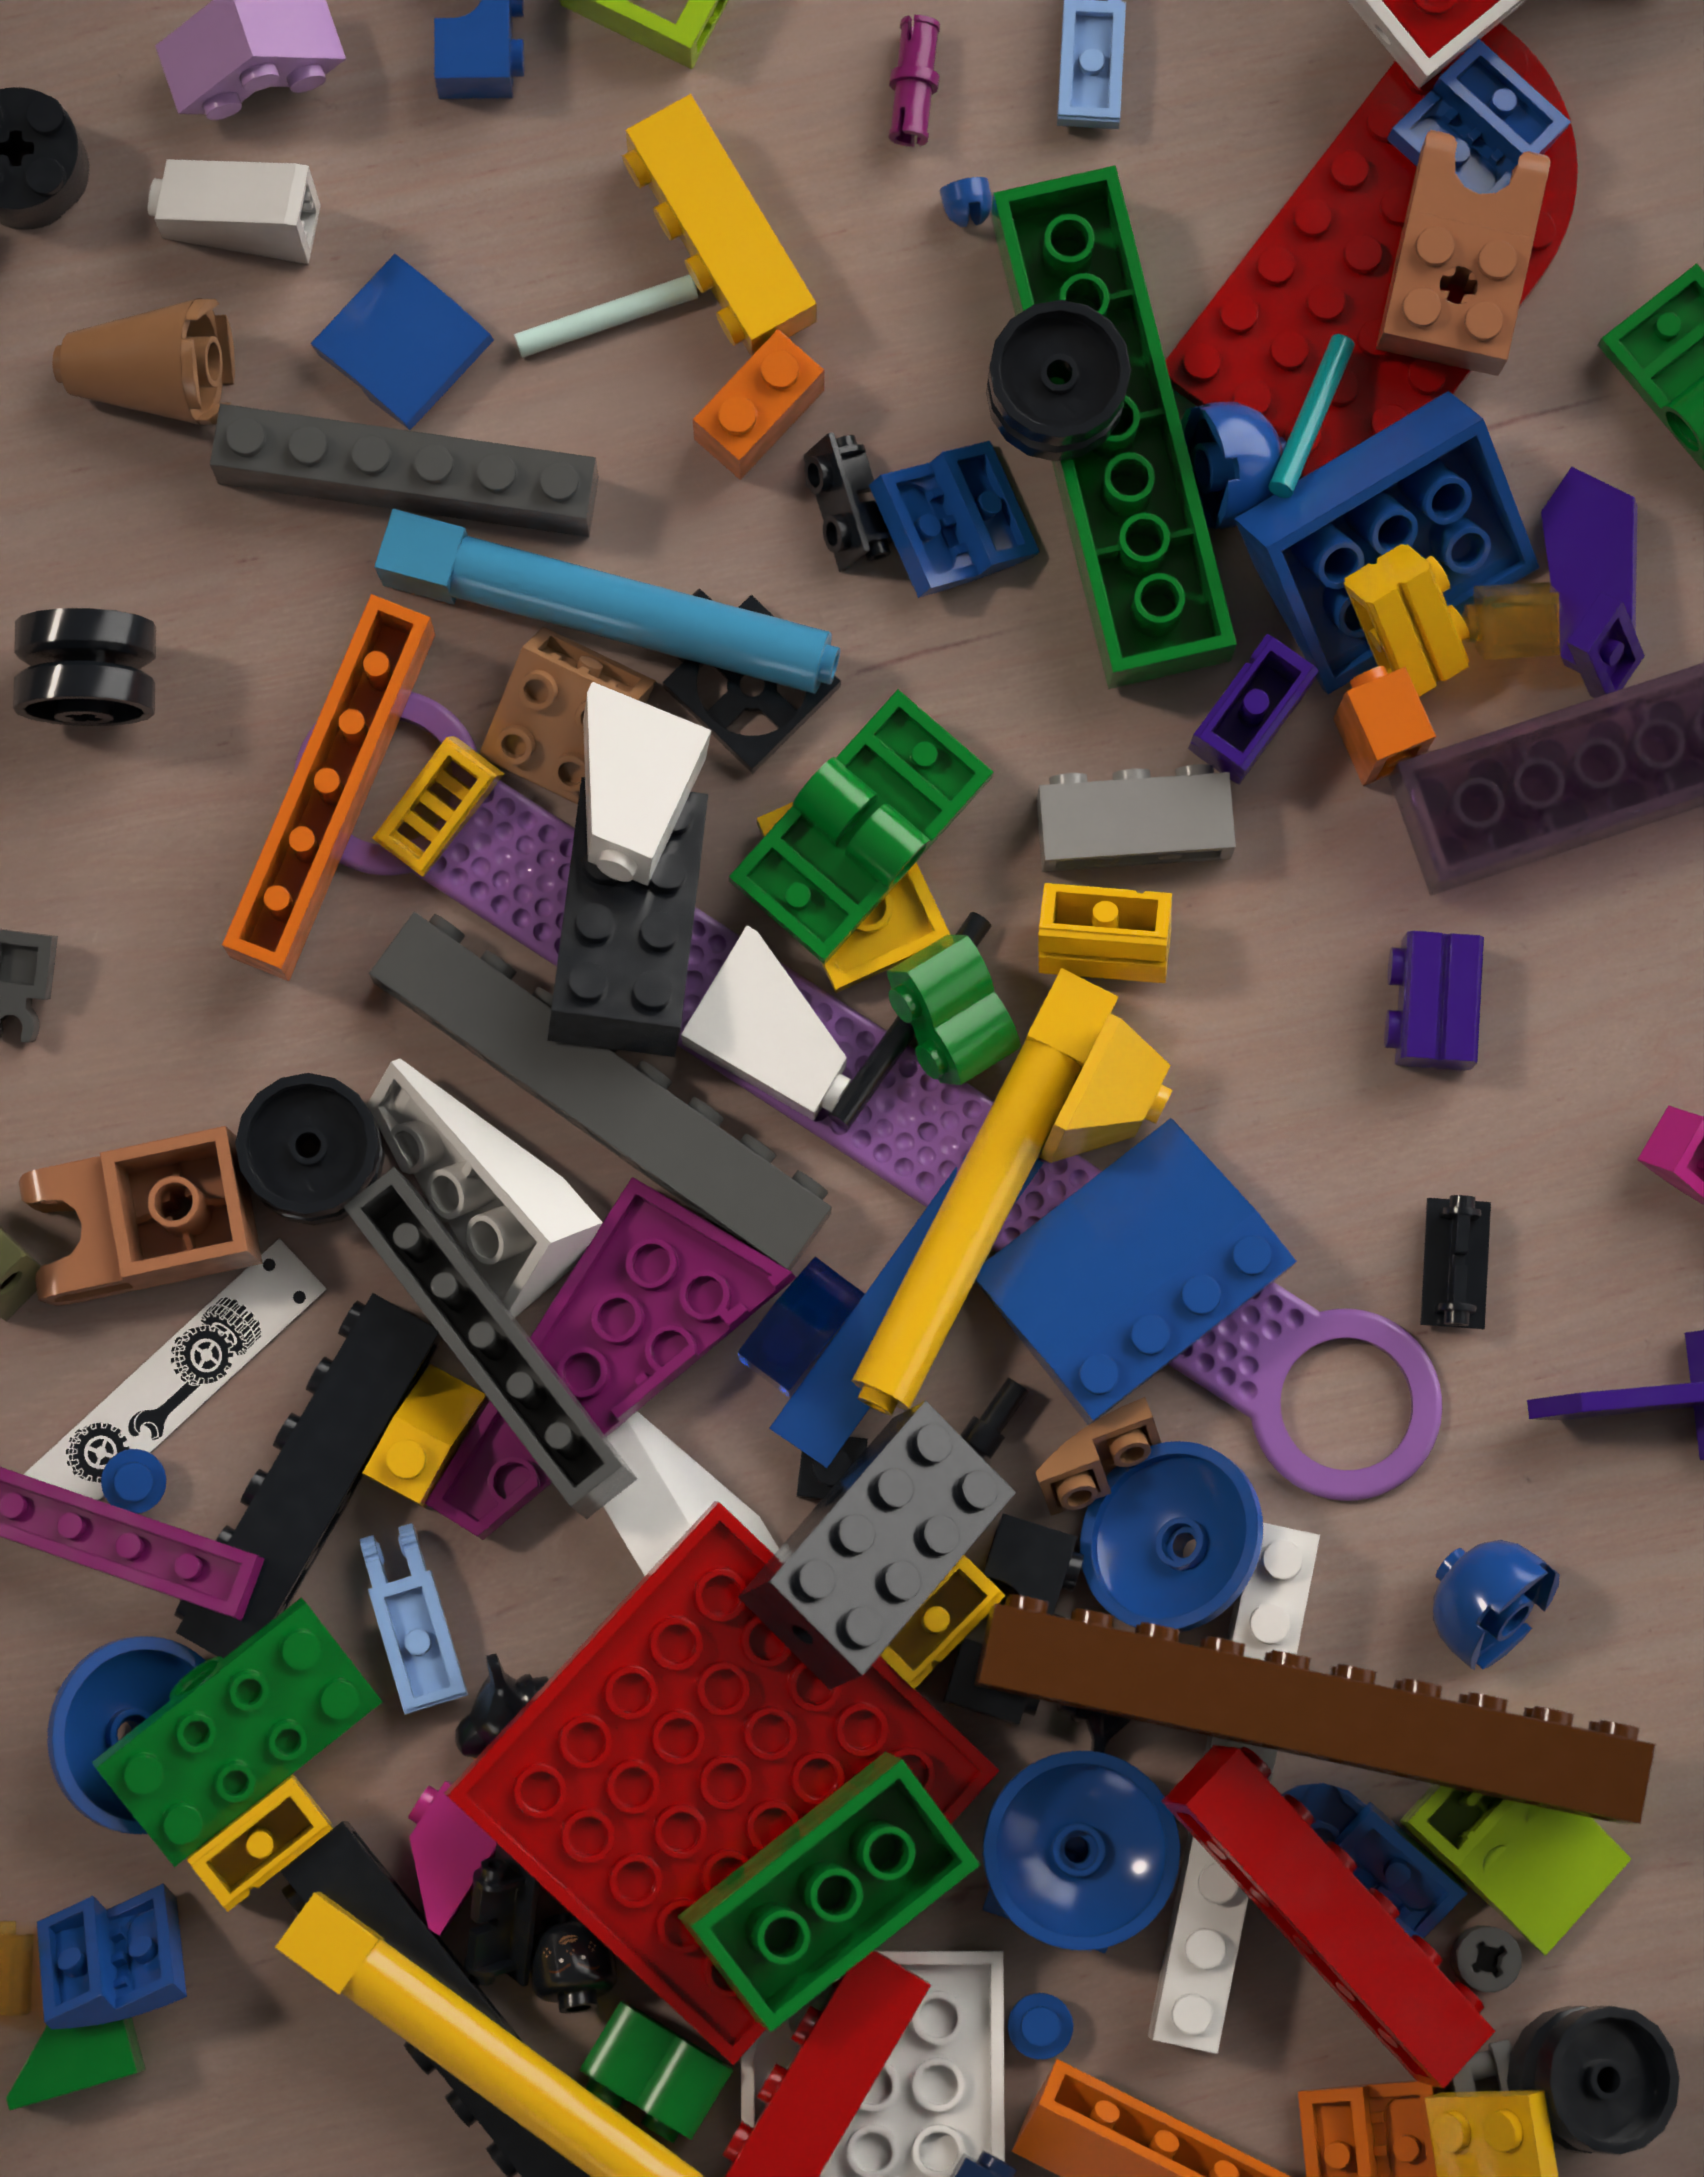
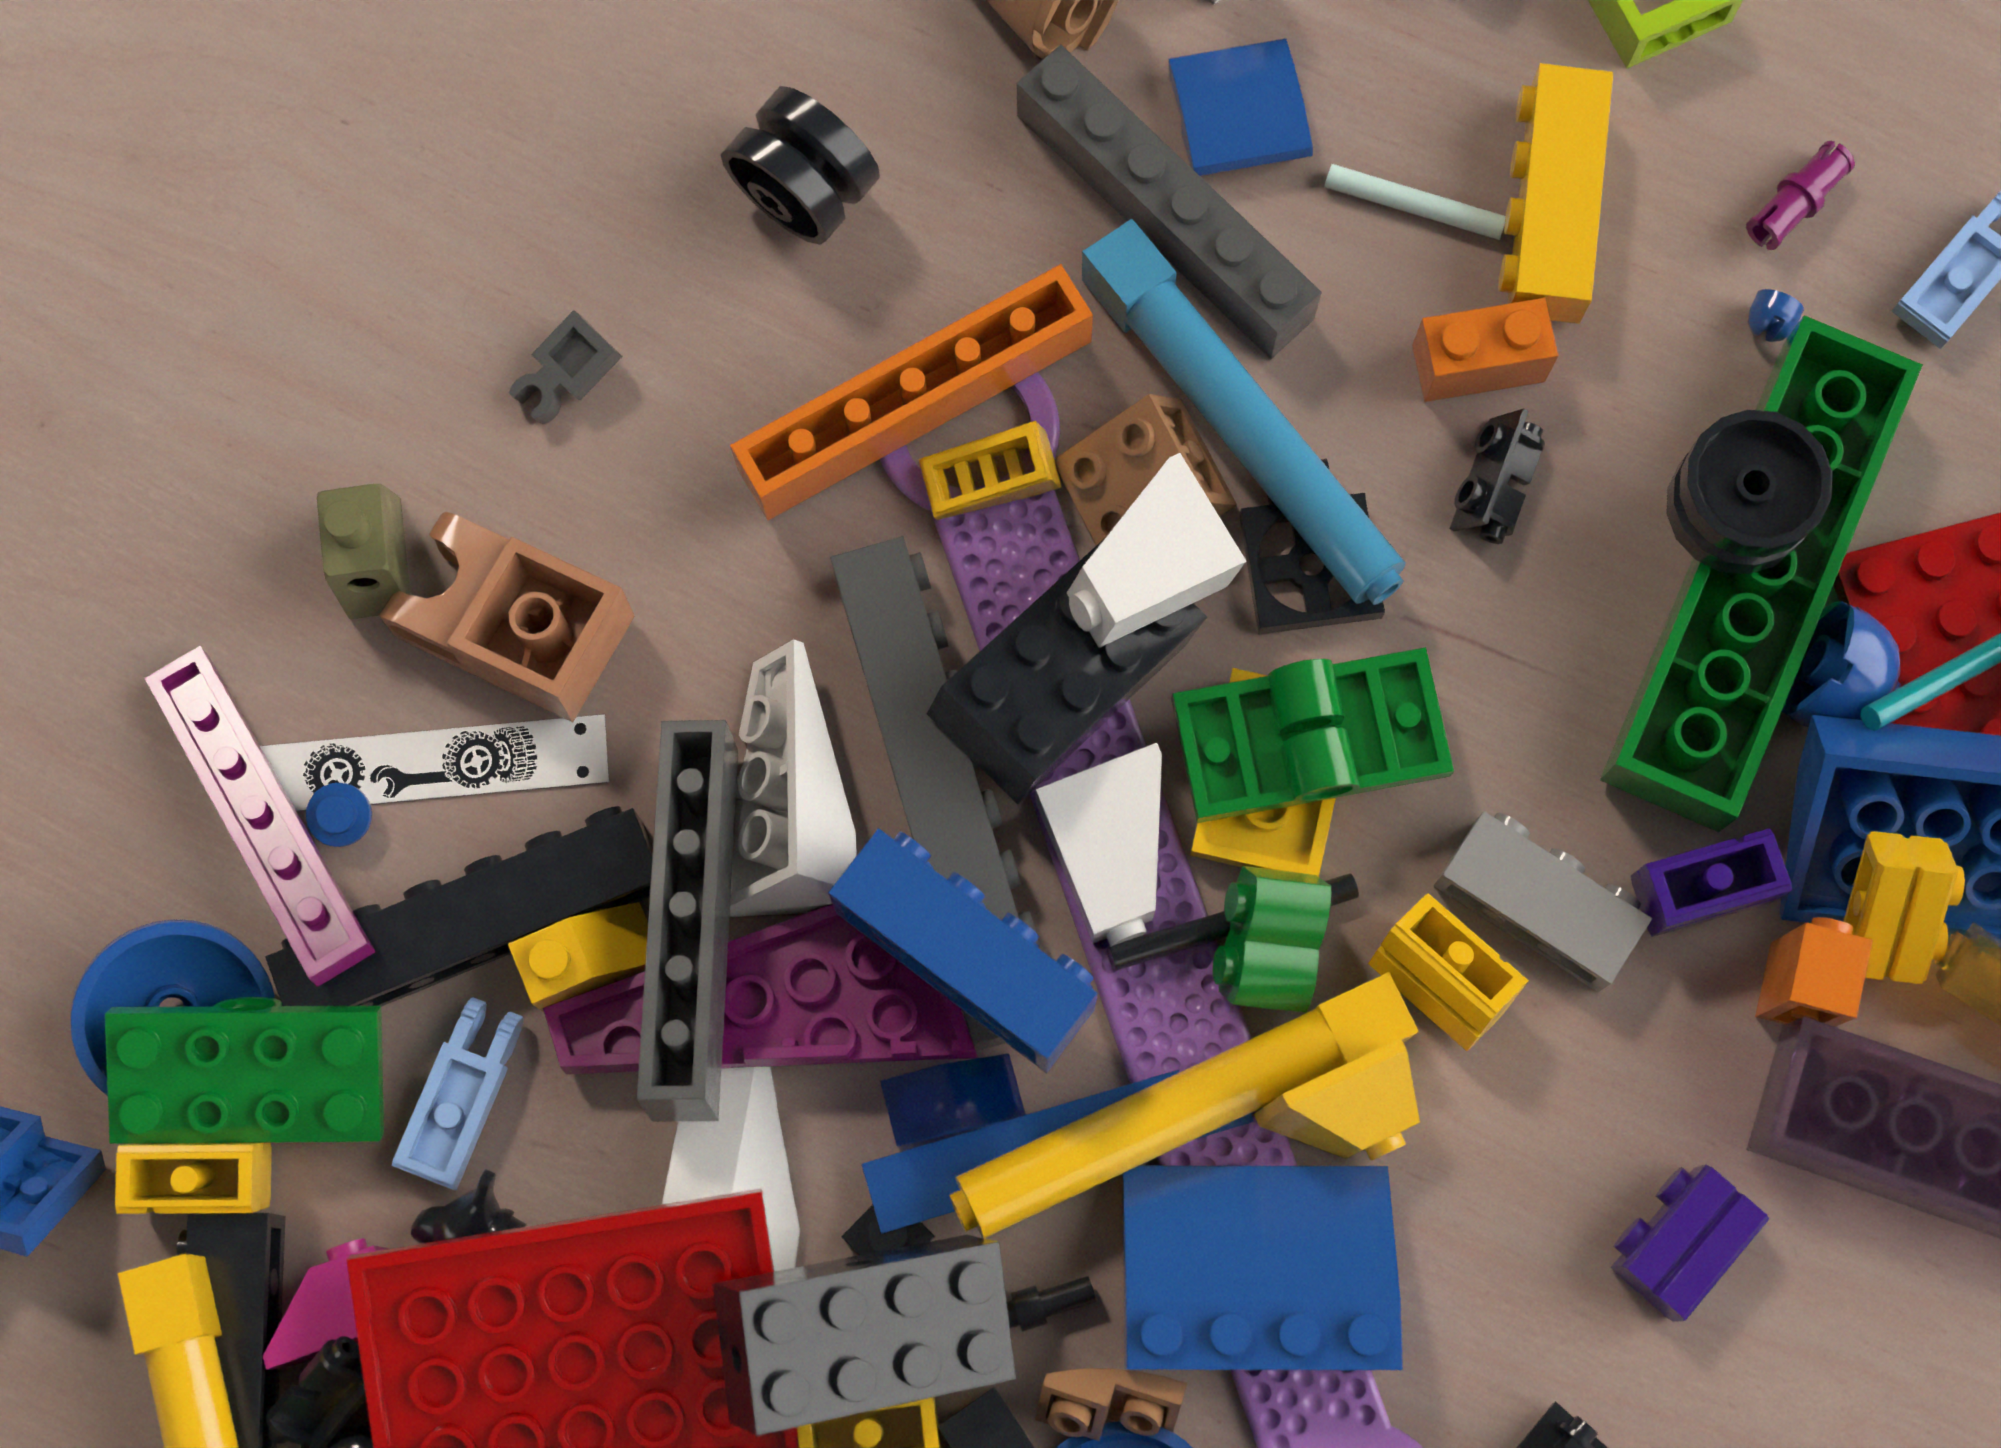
camera: 45 degrees right, 5 degrees down
(285, 1118) = (668, 623): black wheel -> none
(728, 1200) = (964, 949): none -> blue brick
(954, 518) = (1574, 553): blue slope -> none

